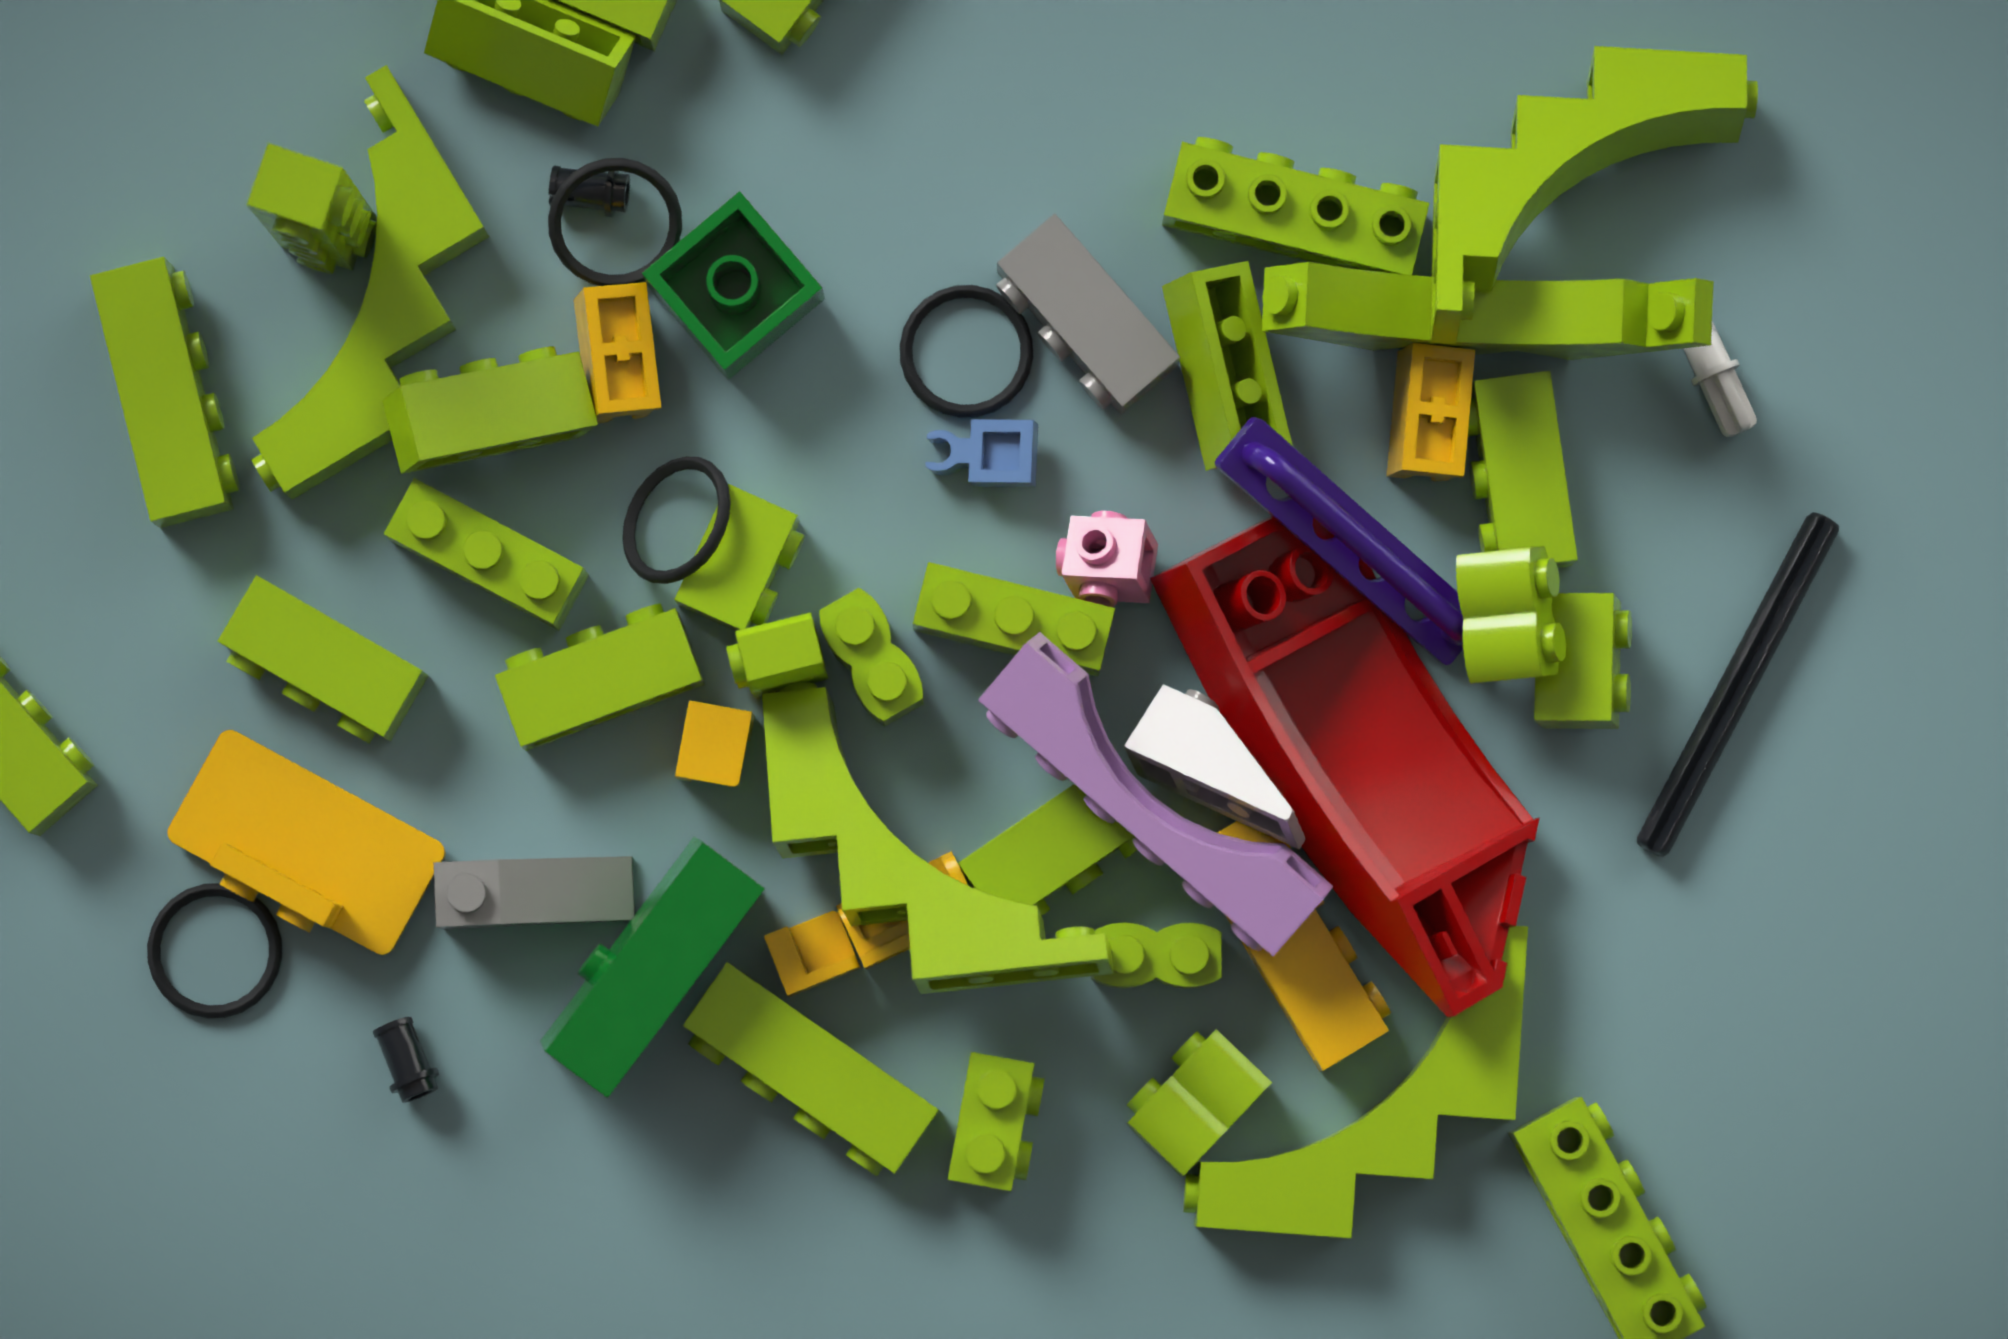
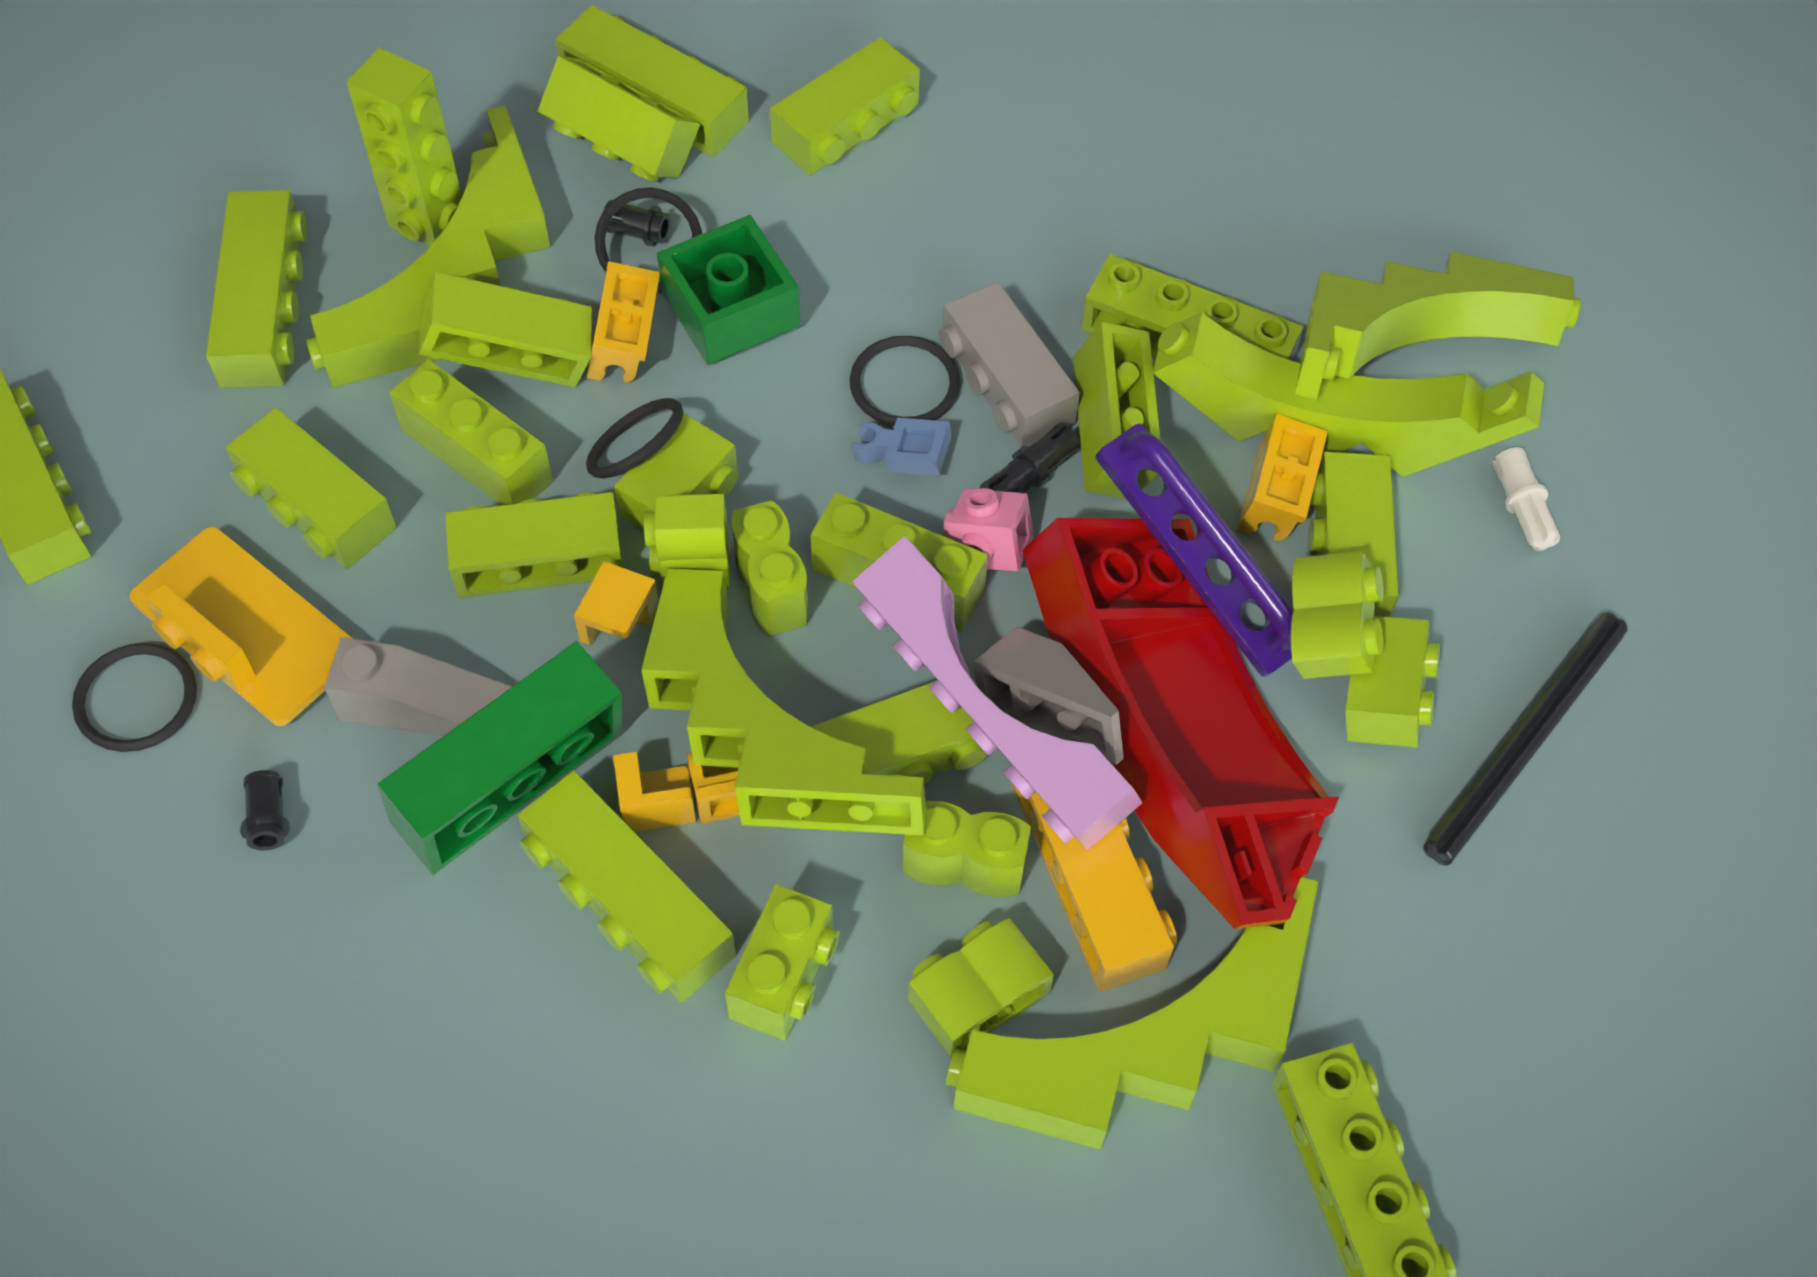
camera: 10 degrees right, 25 degrees down
(1137, 448) = (1034, 463): none -> black pin

